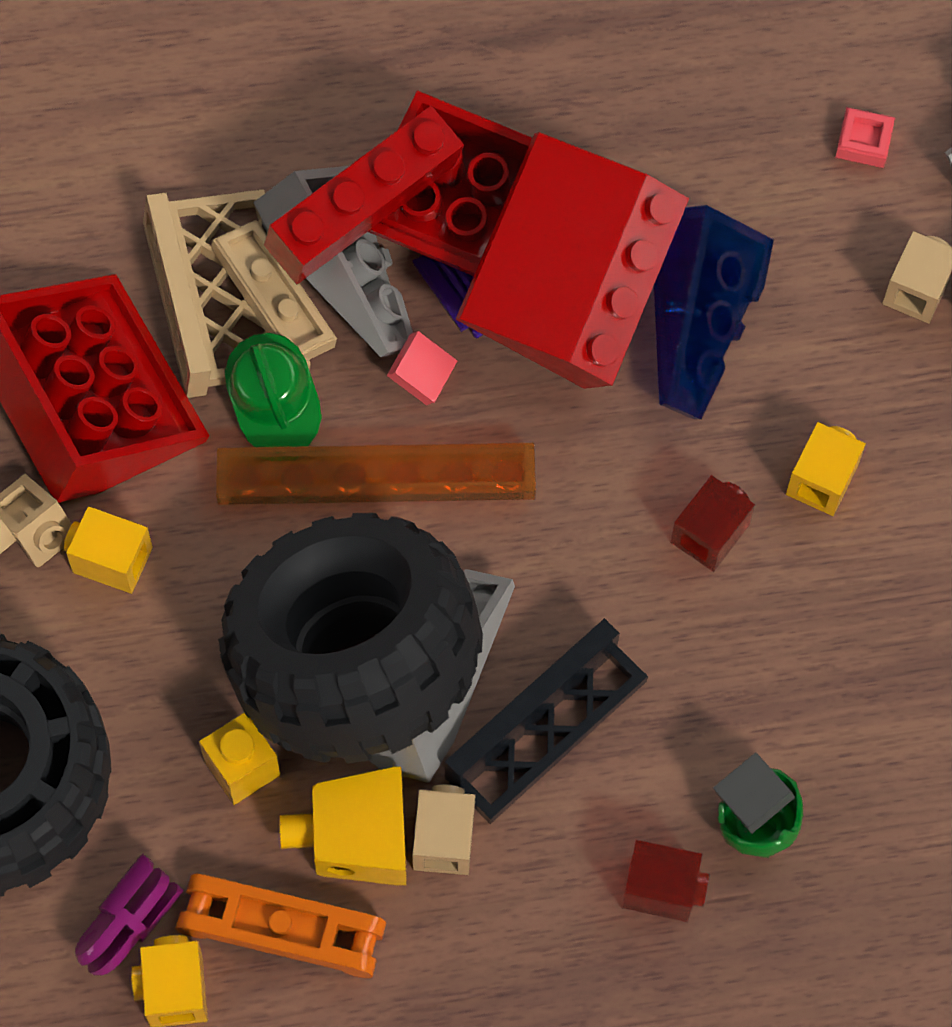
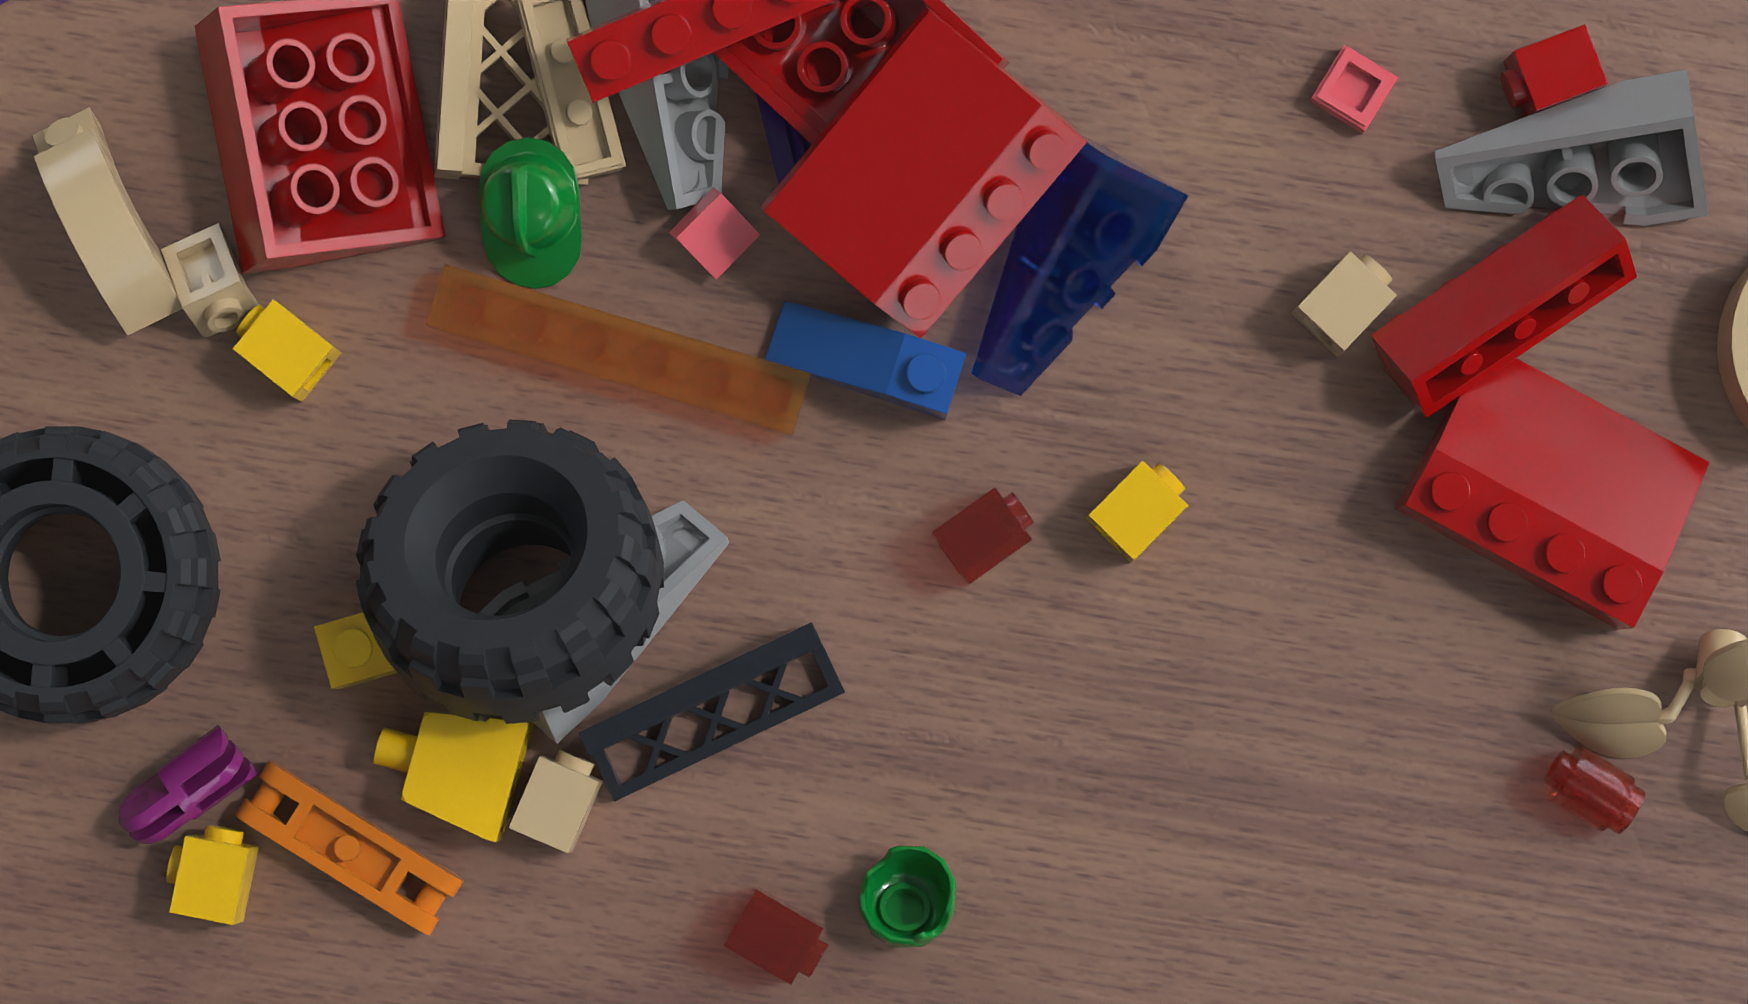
camera: 20 degrees right, 20 degrees up
(581, 420) = (867, 358): none -> blue slope
(753, 792) = (902, 881): dark grey tile -> none

